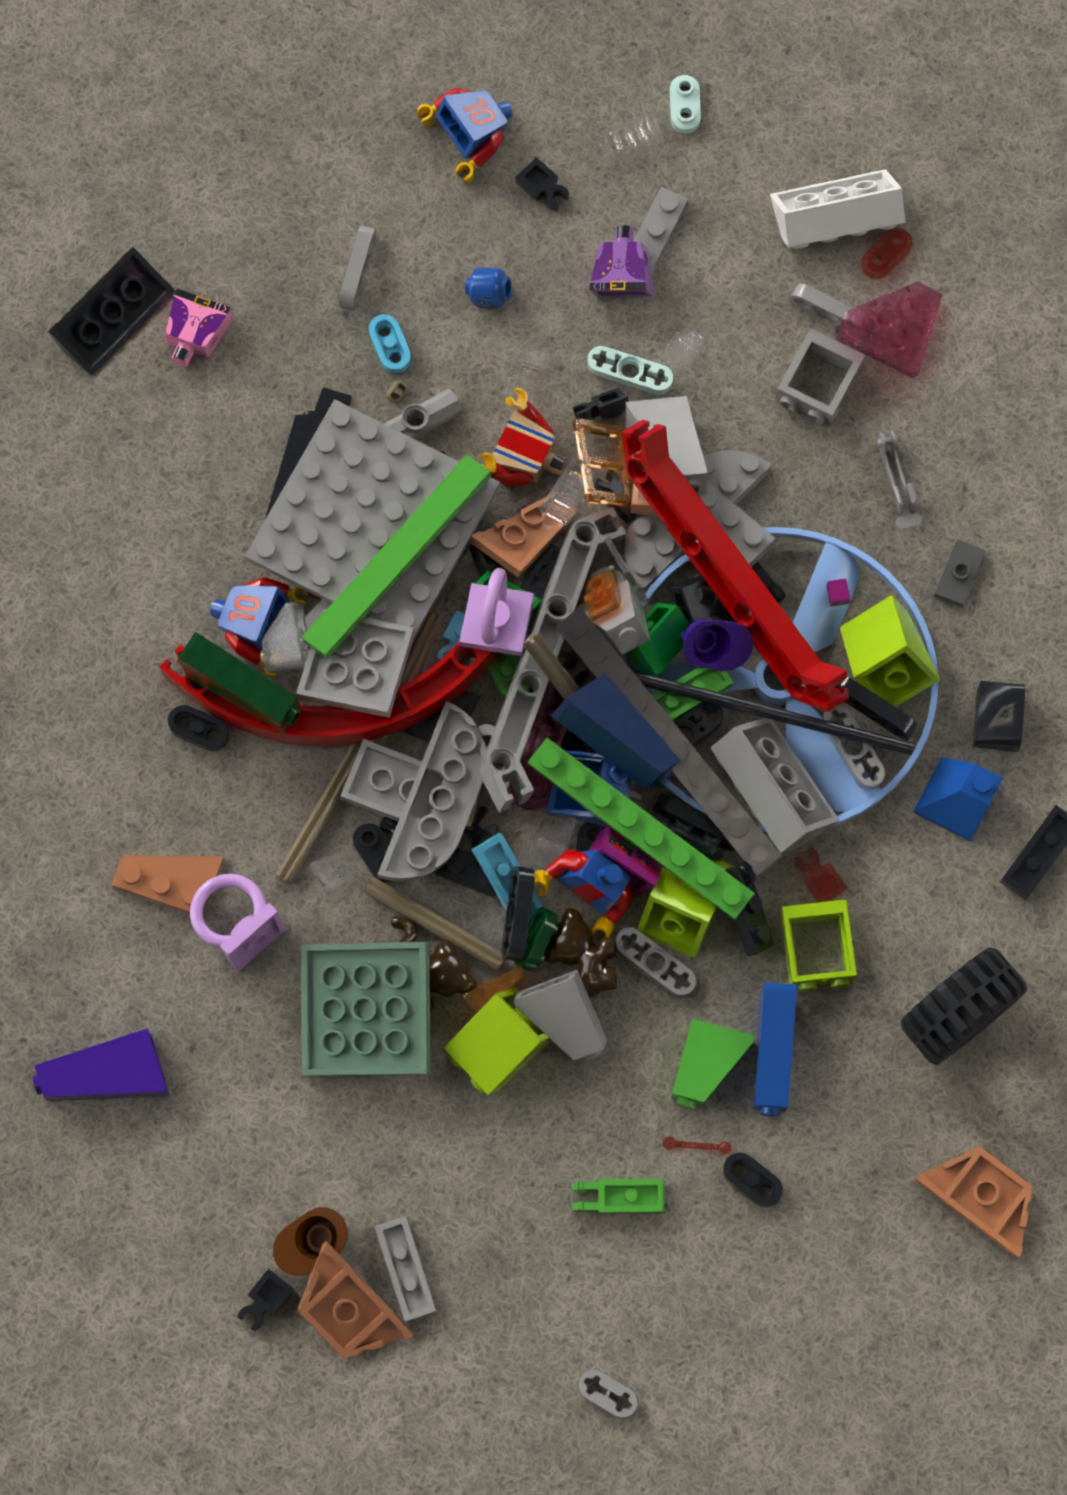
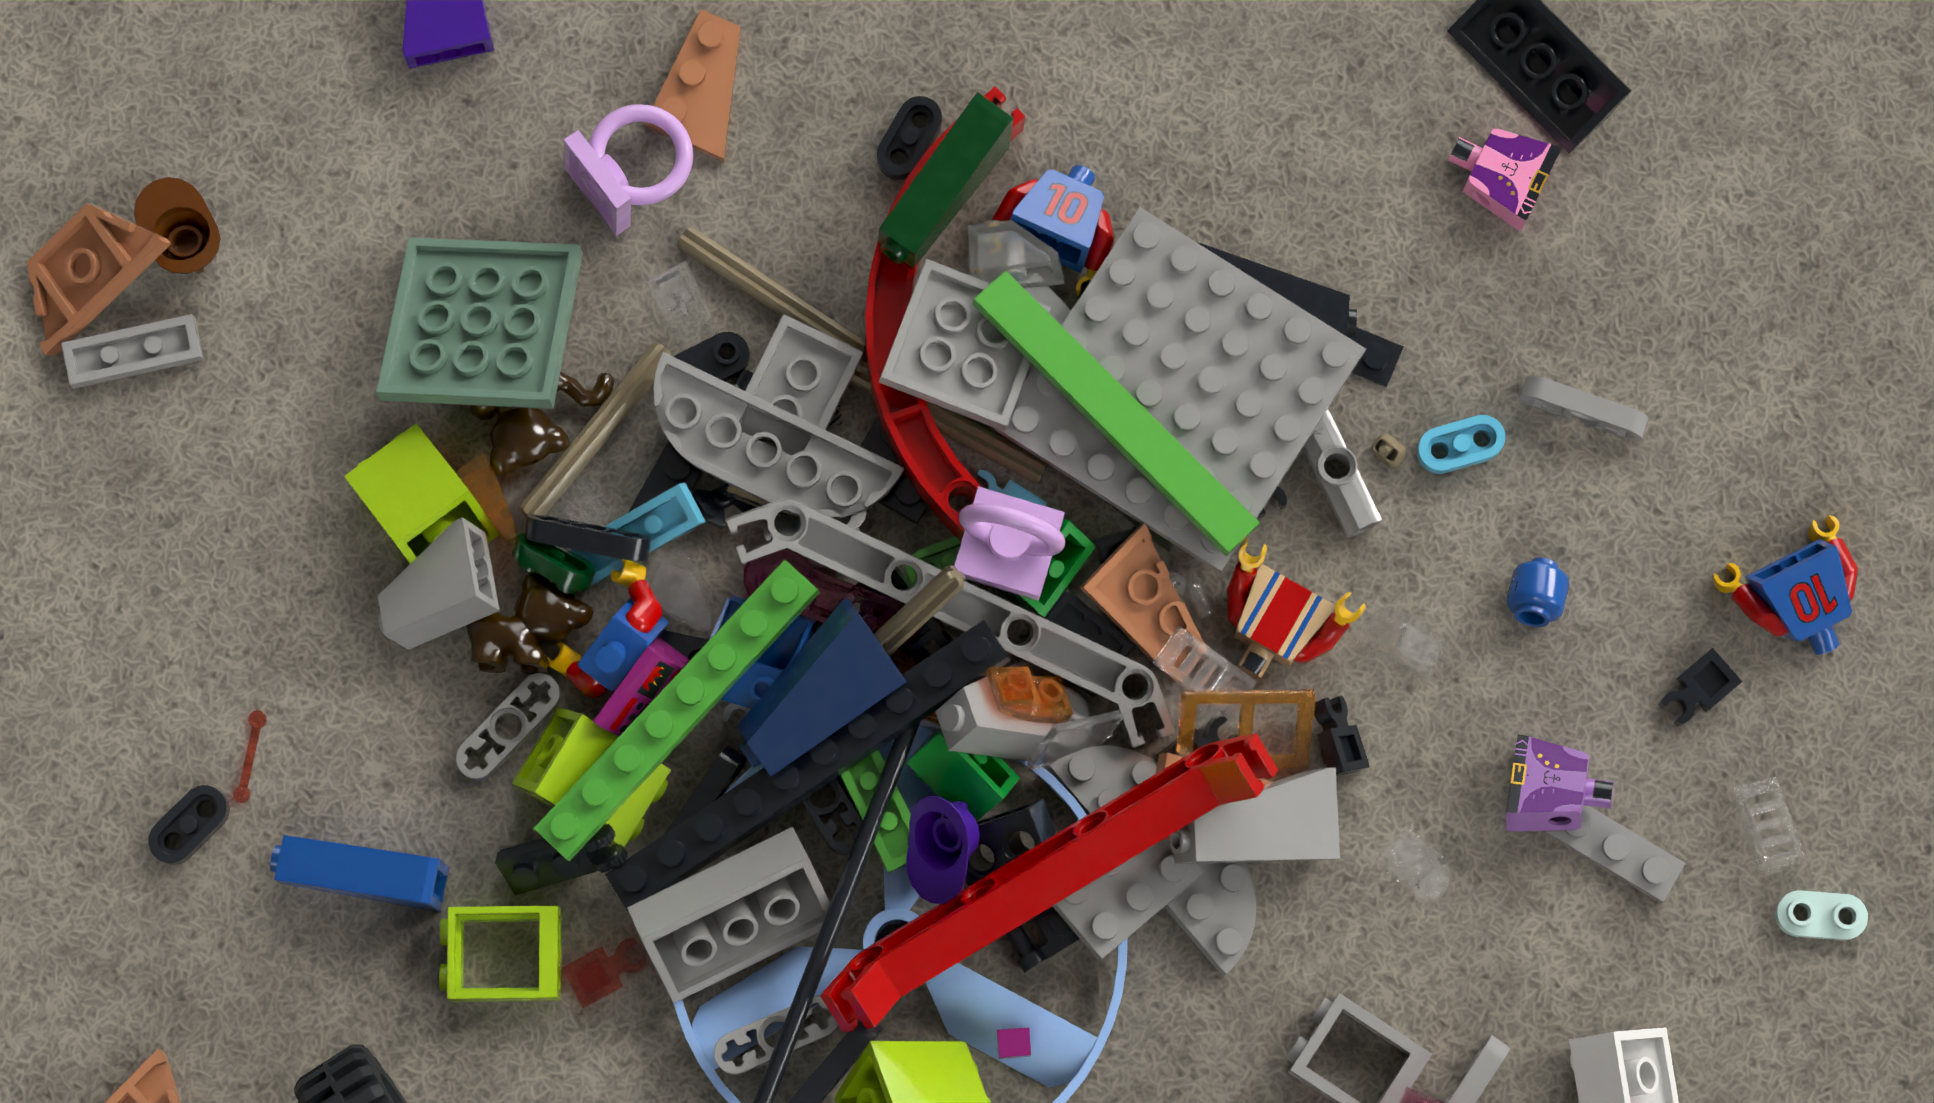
camera: 95 degrees right, 5 degrees up
(268, 1295) = (120, 172): black plate -> none
(622, 1196) = (190, 646): bright green hinge -> none
(625, 359) = (1397, 751): light aqua beam -> none
(707, 844) = (666, 794): black plate -> none
(707, 1061) = (358, 780): bright green slope -> none

